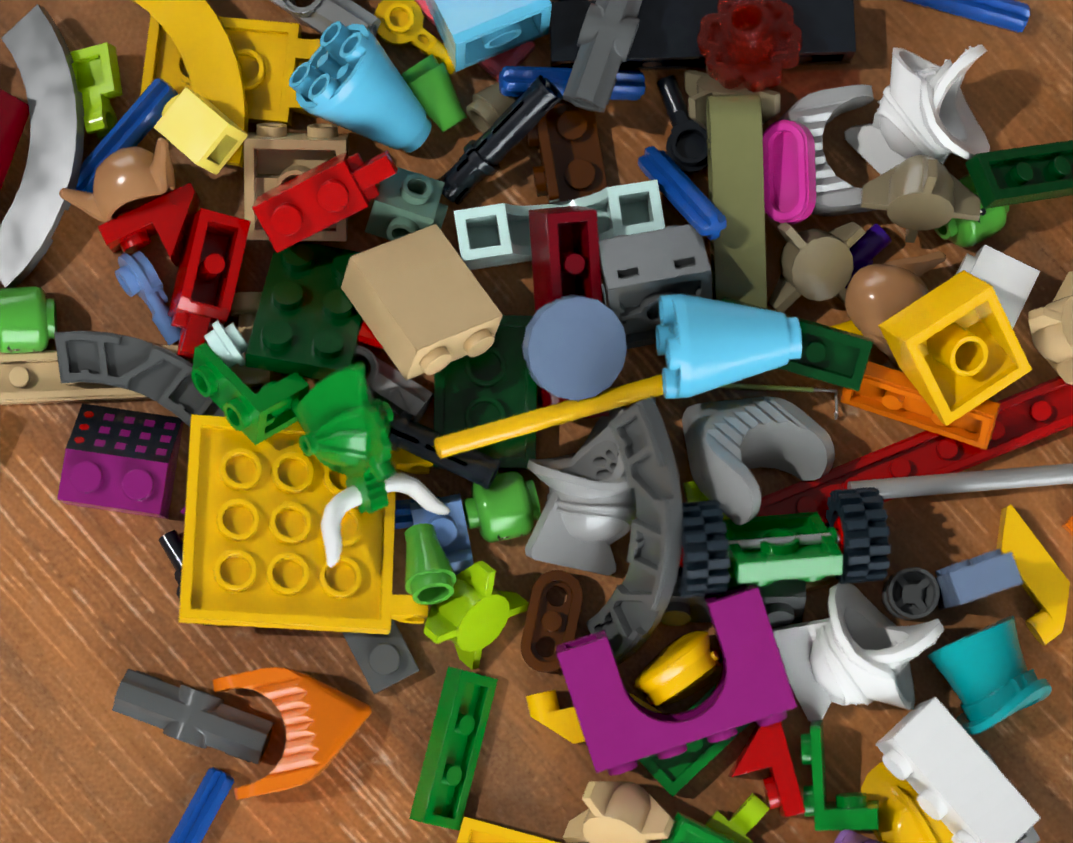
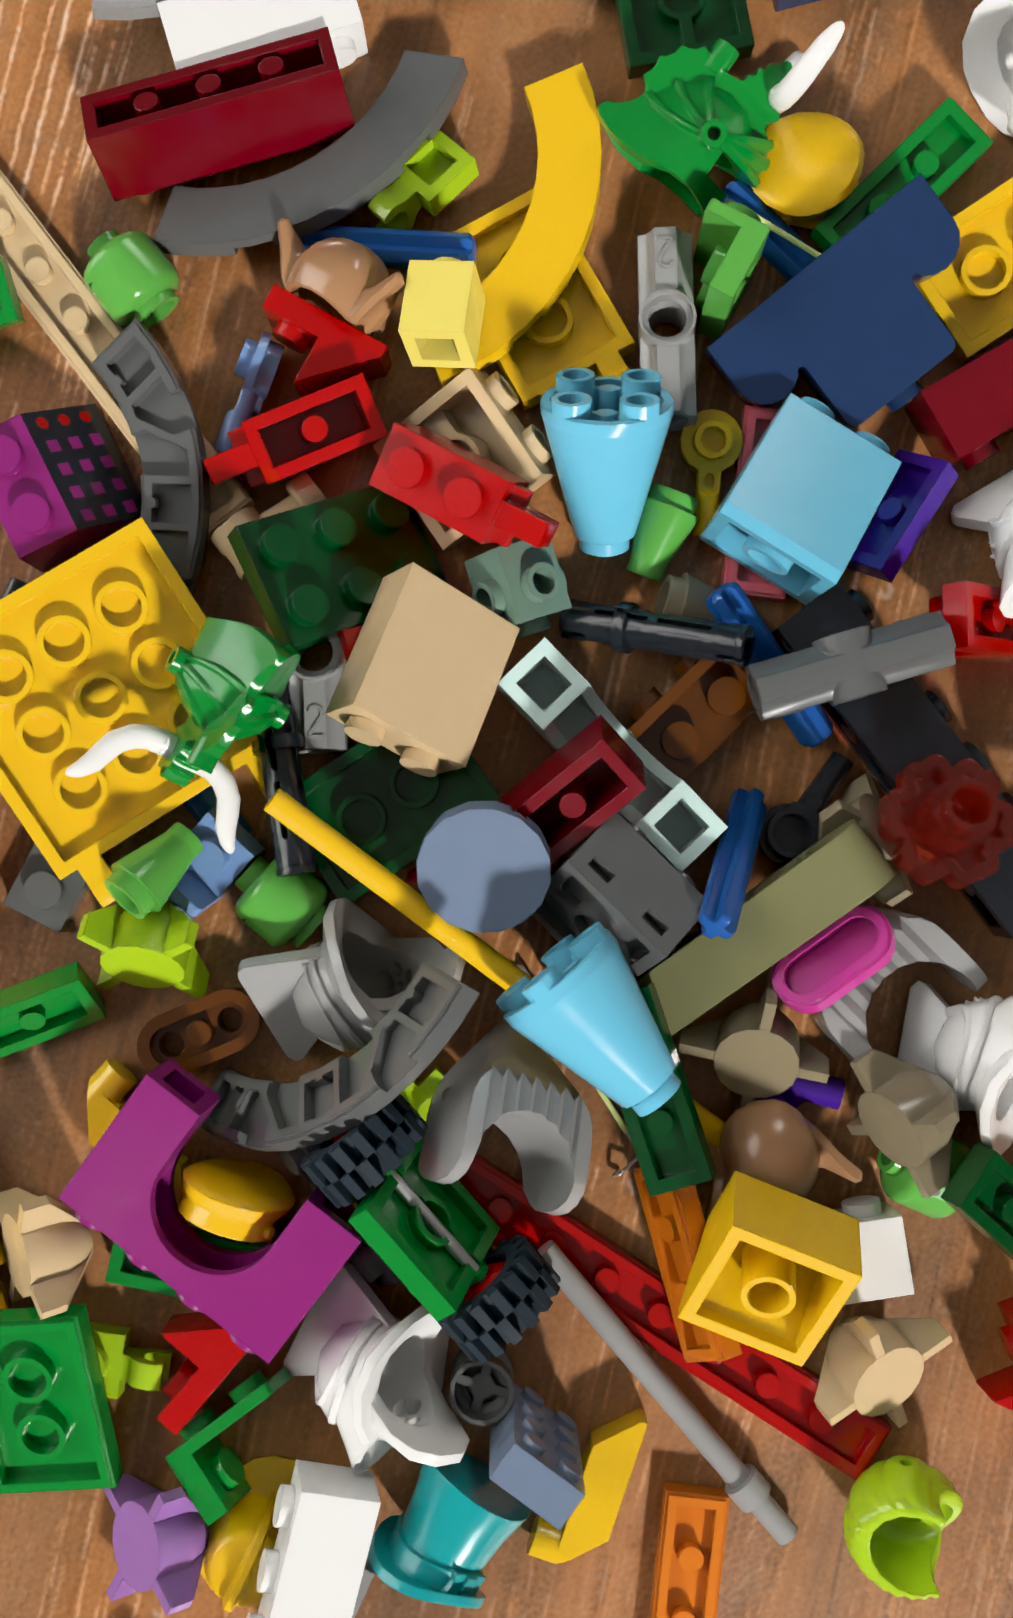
camera: 60 degrees right, 5 degrees up
(227, 344) = (239, 499): light aqua plate -> none
(253, 414) = (184, 586): green bracket -> none

